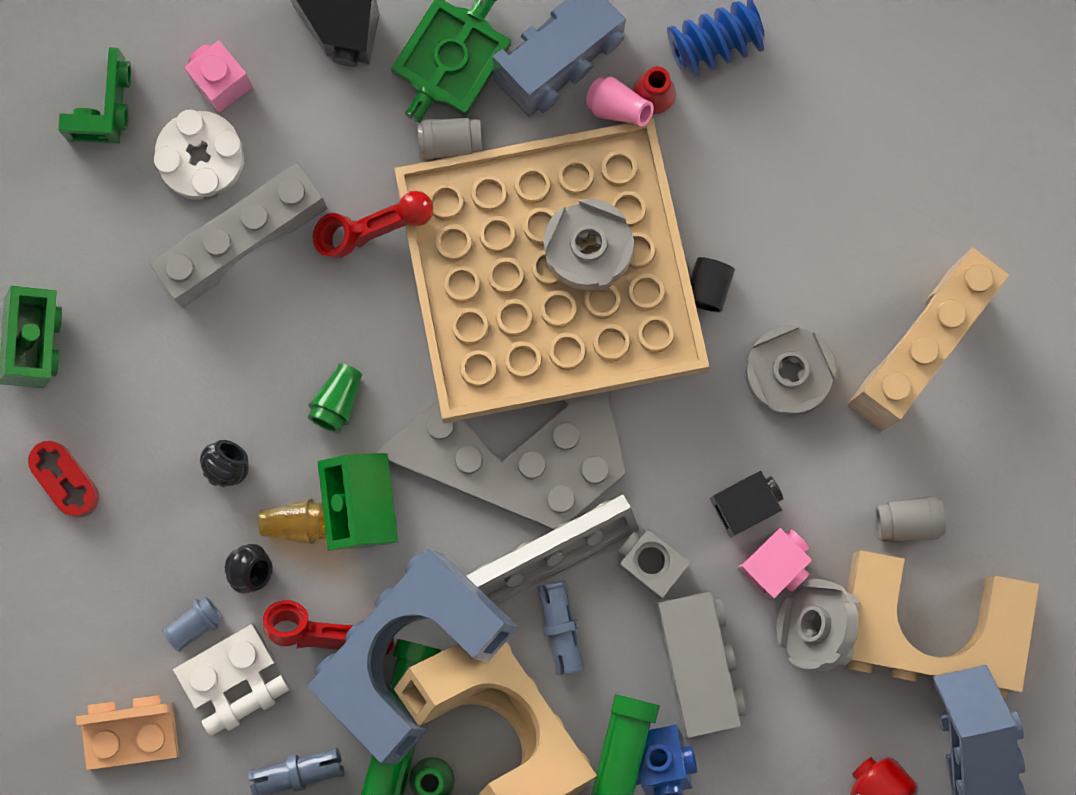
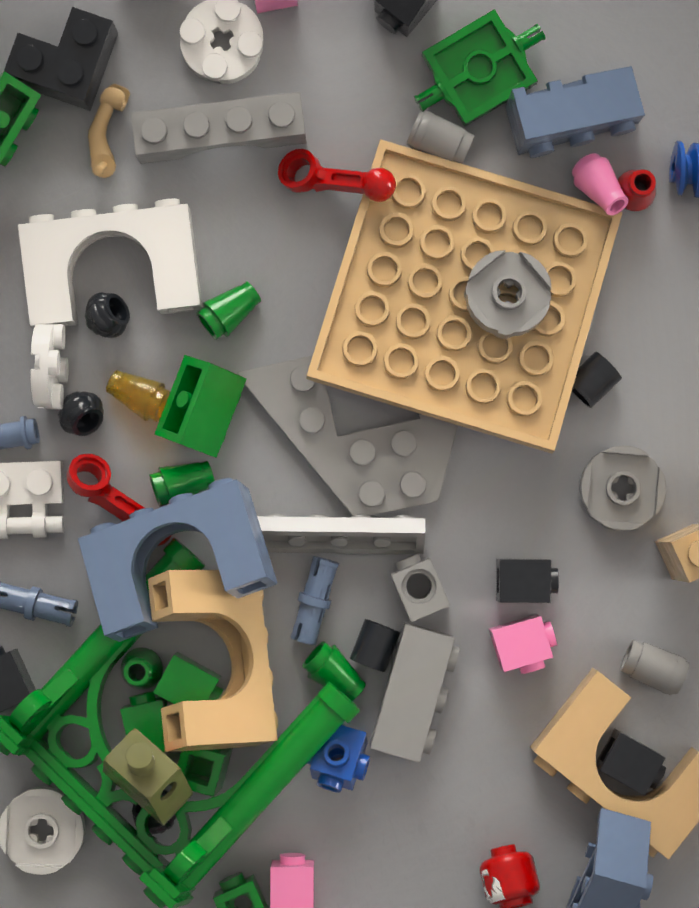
camera: 25 degrees right, 5 degrees up
(73, 252) = (73, 67): none -> black brick
(141, 424) = (54, 246): none -> white arch
(143, 321) = (101, 156): none -> tan piece
(197, 541) = (48, 366): none -> white plate
(373, 580) = (180, 479): none -> green cone
(481, 765) = (188, 681): none -> green brick
(606, 679) = (329, 664): none -> green cone
(640, 639) = (374, 645): none -> black beam
(838, 629) = (544, 726): light grey plate -> none
(938, 620) = (631, 762): none -> black brick

